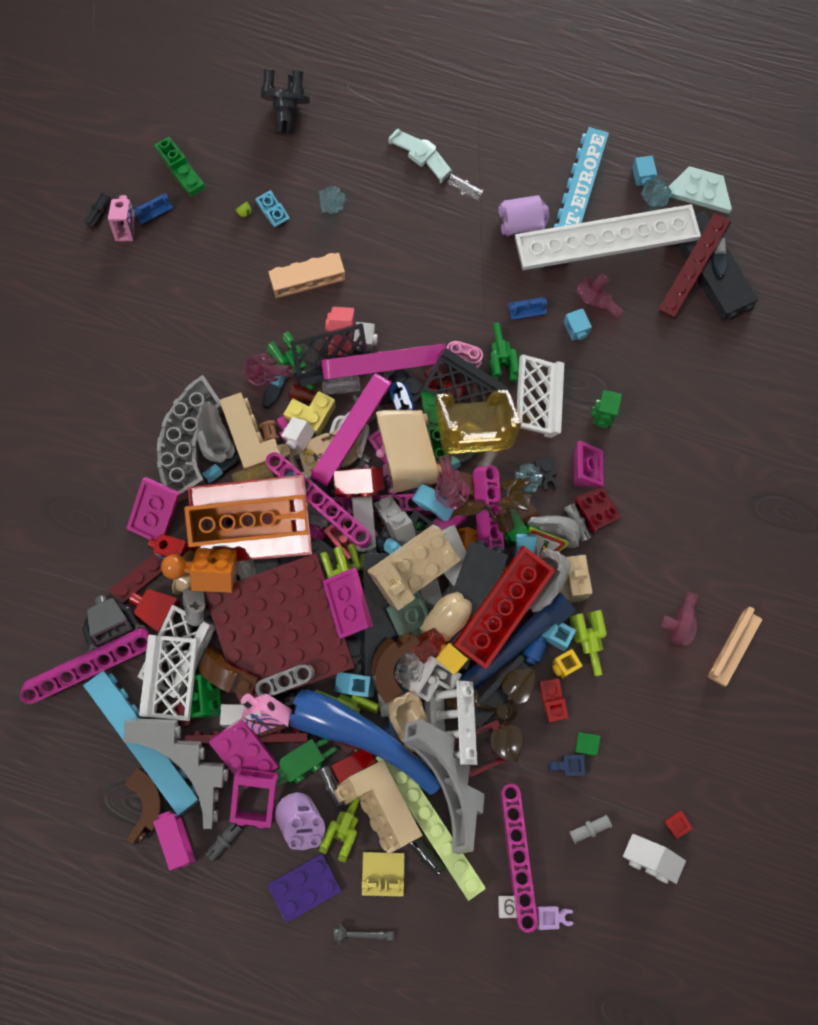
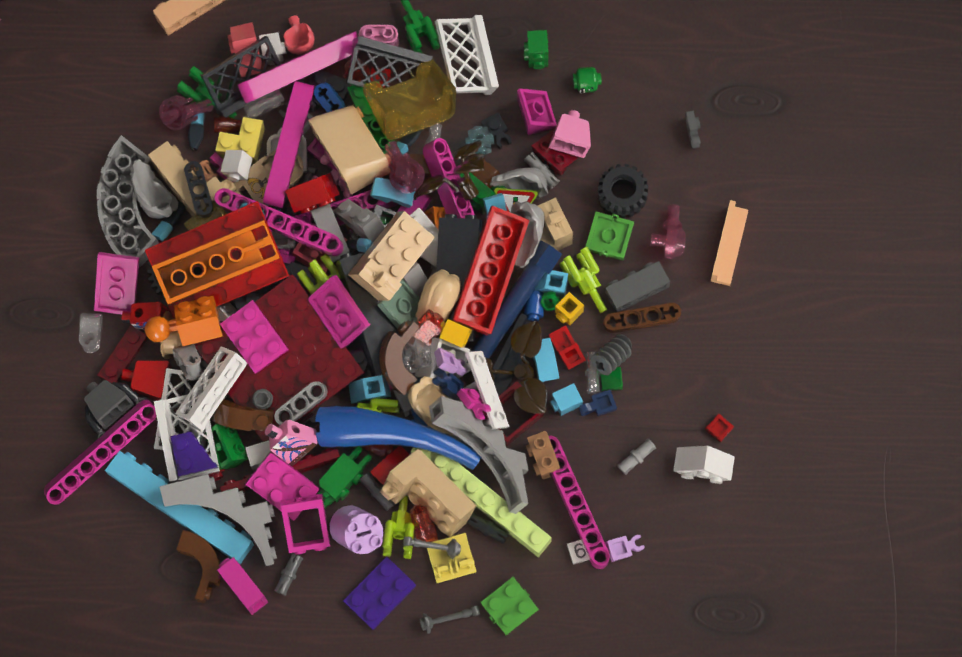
camera: 10 degrees left, 0 degrees up
(117, 543) = (90, 328): none -> clear piece
(166, 697) = (190, 455): none -> dark purple wing
(207, 641) = (213, 389): none -> white fence
(251, 664) = (262, 399): none -> dark grey plate
(260, 433) = (197, 204): none -> black beam
(261, 602) = (254, 337): none -> dark pink plate
(366, 838) = (423, 527): none -> clear red piece
(387, 866) = (452, 548): none -> dark grey piece
(391, 335) = (299, 37): none -> coral hair
(425, 941) = (509, 606): none -> bright green plate
(433, 706) = (449, 383): none -> dark blue plate
(436, 684) = (448, 362): none -> lavender plate
(449, 729) = (472, 400): none -> dark pink plate
(502, 800) = (543, 452): none -> medium nougat bracket
(530, 710) = (546, 362): none -> medium azure slope
(538, 751) = (566, 399): none -> medium azure brick
(548, 654) = (546, 304): none -> green plate
(571, 732) = (592, 376): none -> clear pin
(595, 722) = (612, 354): none -> dark grey piece
(615, 498) = (571, 135): none -> bright pink torso
(624, 604) = (609, 235): none -> bright green plate
(633, 692) = (641, 313): none -> reddish brown beam
(637, 661) = (637, 286): none -> dark grey brick
(643, 451) = (586, 79): none -> green head
(656, 552) = (627, 176): none -> black tyre
(731, 522) = (693, 125): none -> dark grey plate

